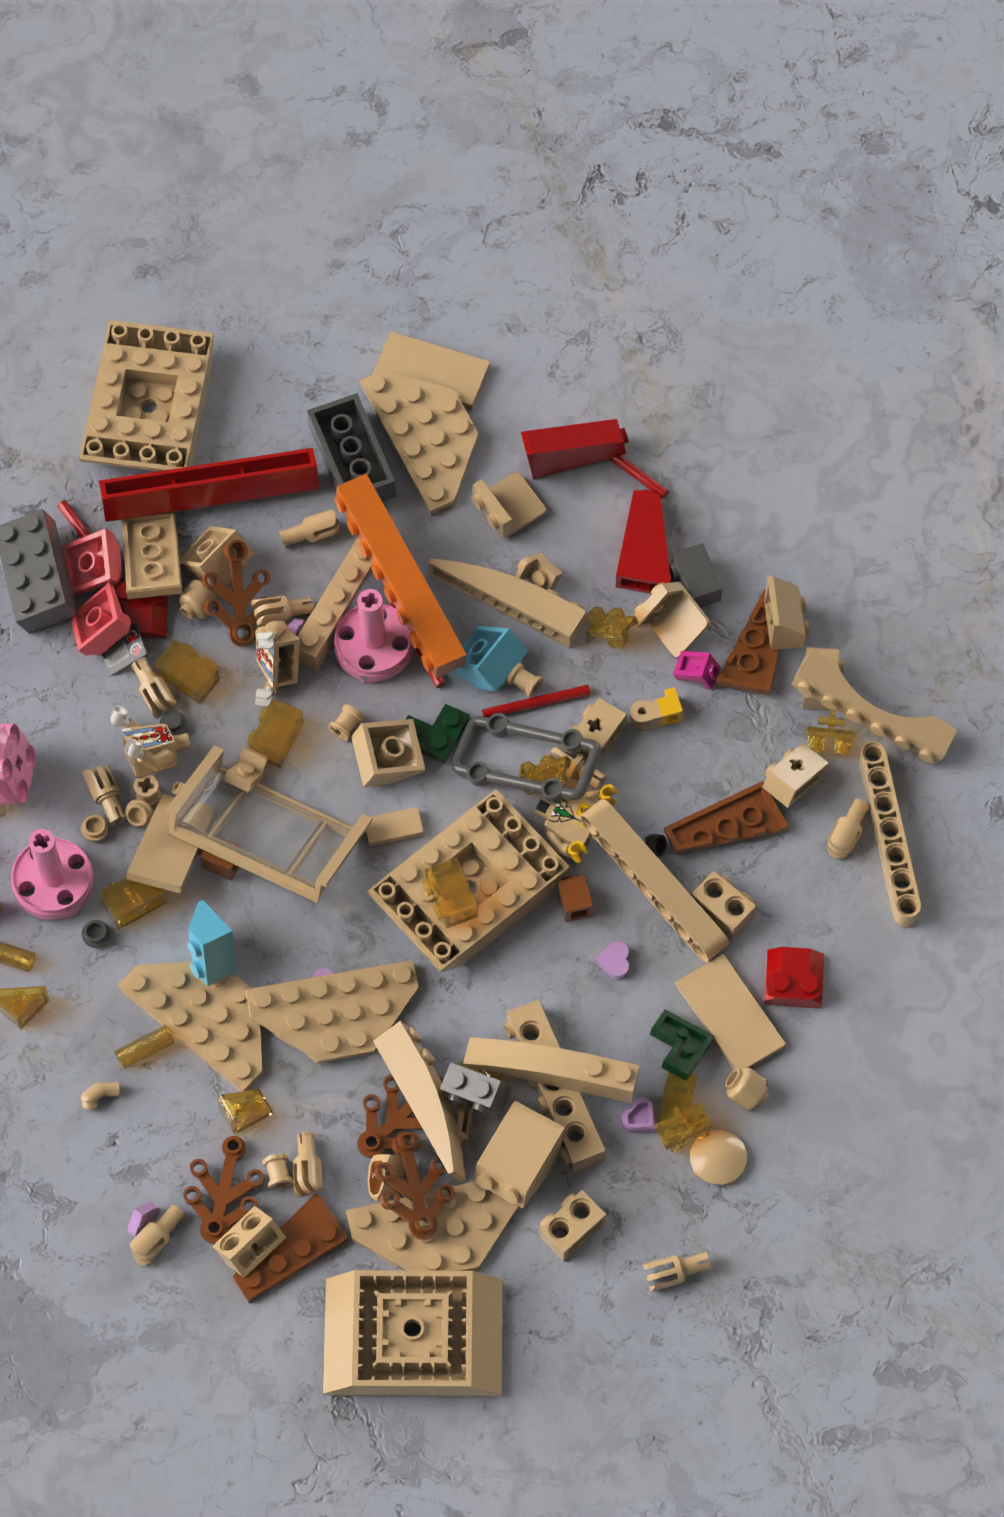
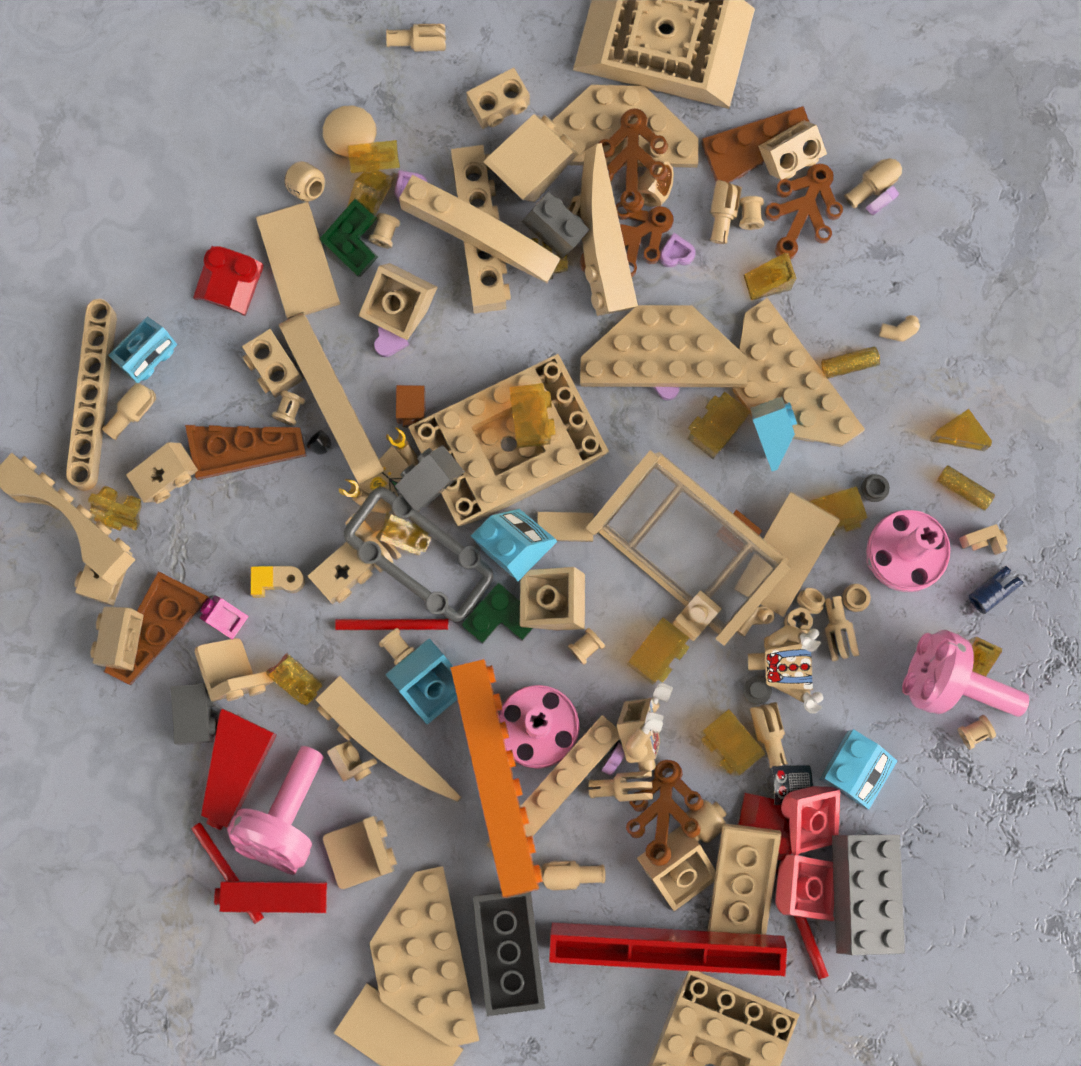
camera: 170 degrees left, 15 degrees up
(65, 677) = (858, 768): none -> medium azure slope
(265, 952) = (718, 424): none -> clear yellow brick
(346, 1118) = (677, 251): none -> lavender tile
(438, 792) = (513, 541): none -> medium azure slope
(533, 812) = (429, 477): none -> dark grey brick
(589, 486) = (271, 836): none -> bright pink piece
(616, 993) = (397, 300): none -> tan slope
(651, 1061) = (384, 230): none -> tan bush
(694, 867) = (295, 401): none -> tan bush
(853, 880) = (143, 350): none -> medium azure slope

